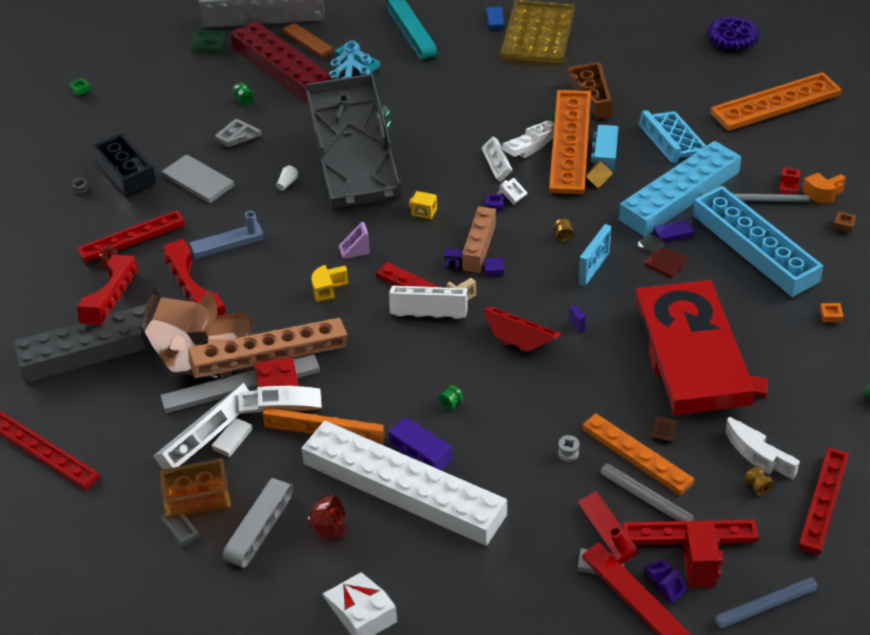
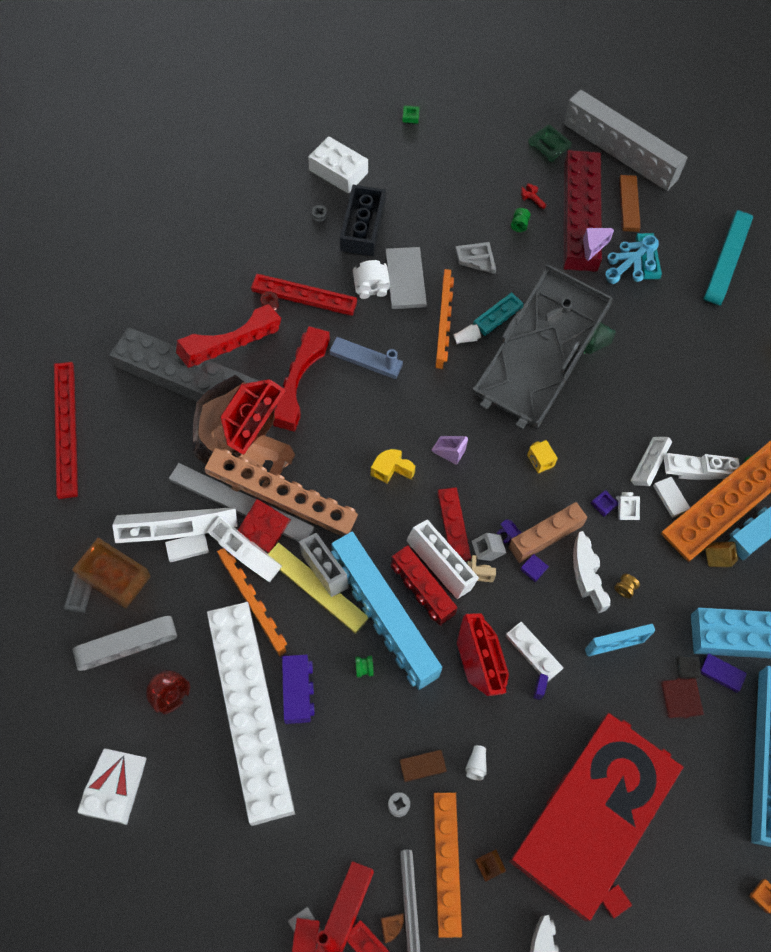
camera: 40 degrees right, 20 degrees up
(59, 146) = (338, 164): none -> white brick
(175, 190) = (371, 279): none -> white brick
(189, 308) = (249, 412): none -> red wedge
(228, 76) = (532, 195): none -> red bar
(257, 180) = (444, 325): none -> orange plate
(294, 151) = (498, 314): none -> teal plate
(315, 63) = (595, 240): none -> lavender slope
(351, 361) = (324, 565): none -> light grey brick
(366, 385) = (308, 582): none -> light yellow tile
(426, 353) = (387, 612): none -> medium azure brick
(434, 325) = (423, 585): none -> red brick
(451, 272) = (488, 547): none -> light grey brick
(532, 169) = (671, 497): none -> white tile
(534, 245) = (585, 567): none -> white slope
(546, 307) = (533, 651): none -> white plate
(556, 419) = (422, 766): none -> reddish brown tile
(591, 389) = (477, 763): none -> white cone
(645, 512) = (391, 927): none -> dark orange tile

